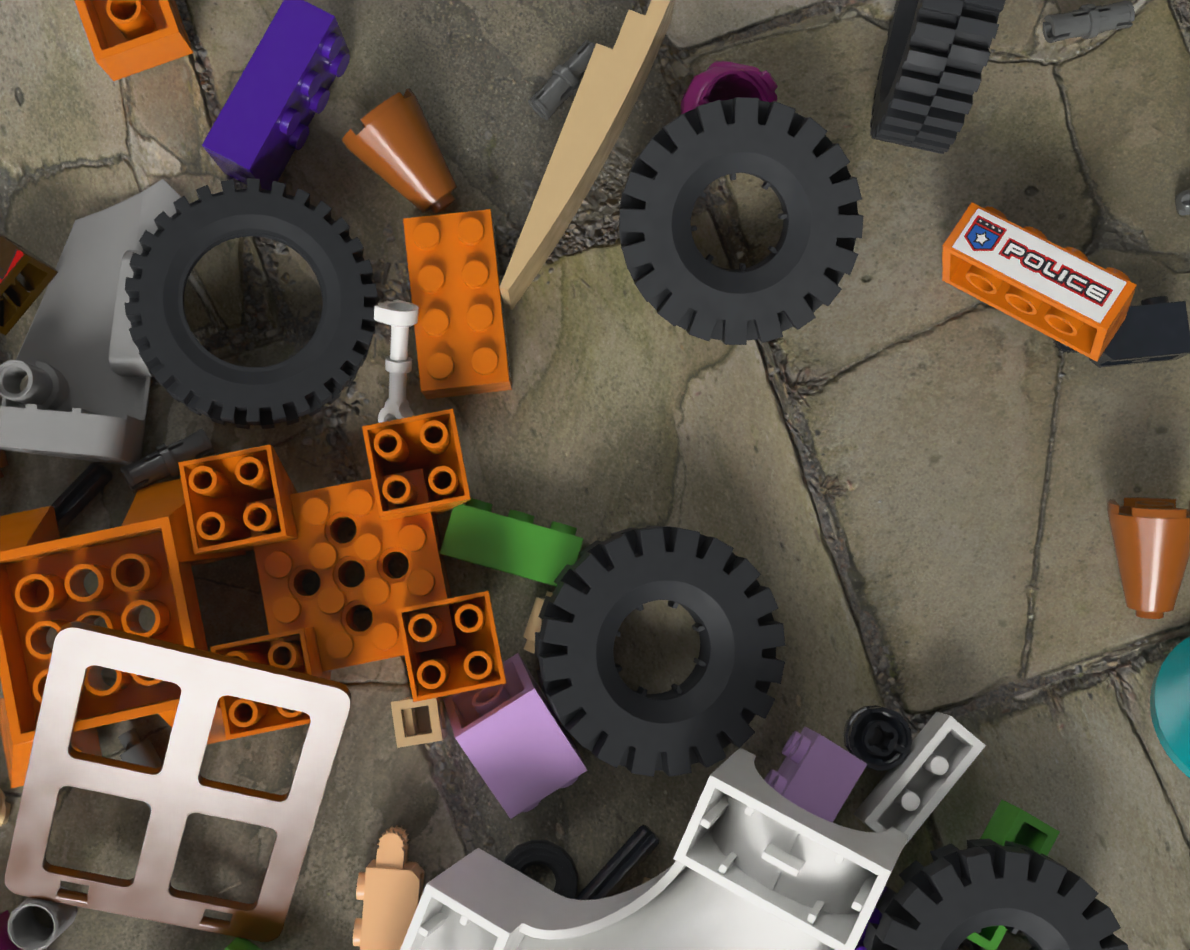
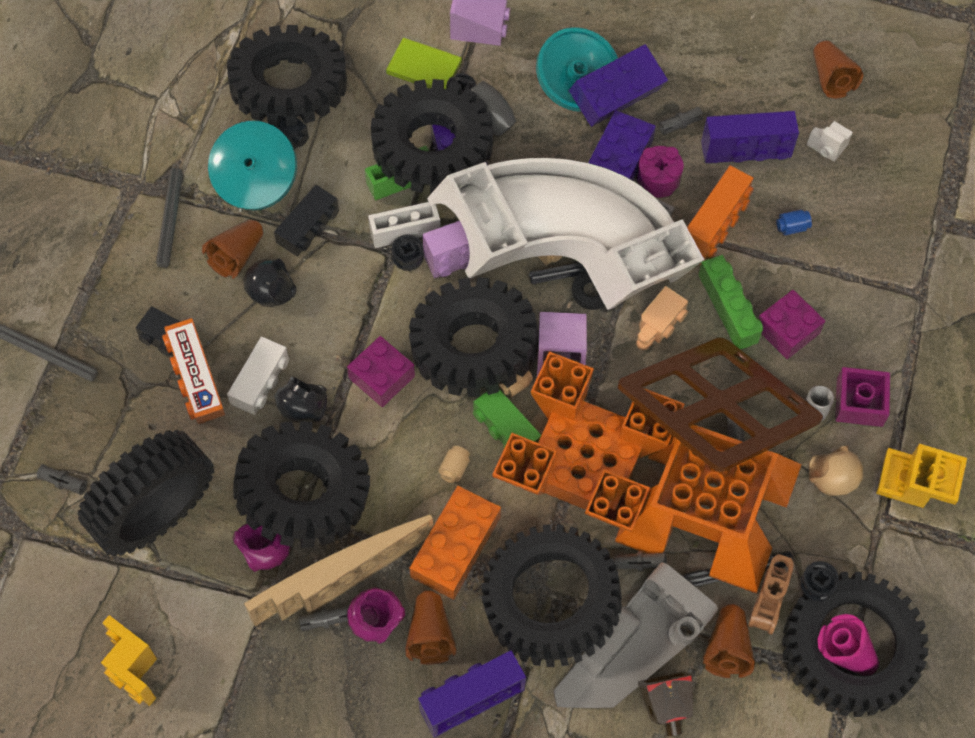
camera: 140 degrees left, 20 degrees down
(400, 317) = (487, 541): white piece -> none
(418, 721) = (601, 375): tan brick -> none
(498, 103) = (362, 614): none -> magenta helmet
(545, 425) = (454, 464): none -> tan brick
(764, 496) = (381, 371): none -> magenta brick
(844, 365) = (301, 401): none -> black helmet
(941, 363) = (258, 376): none -> white brick
(1047, 523) = (269, 283): none -> black helmet
(1079, 681) = (306, 220): none -> black brick

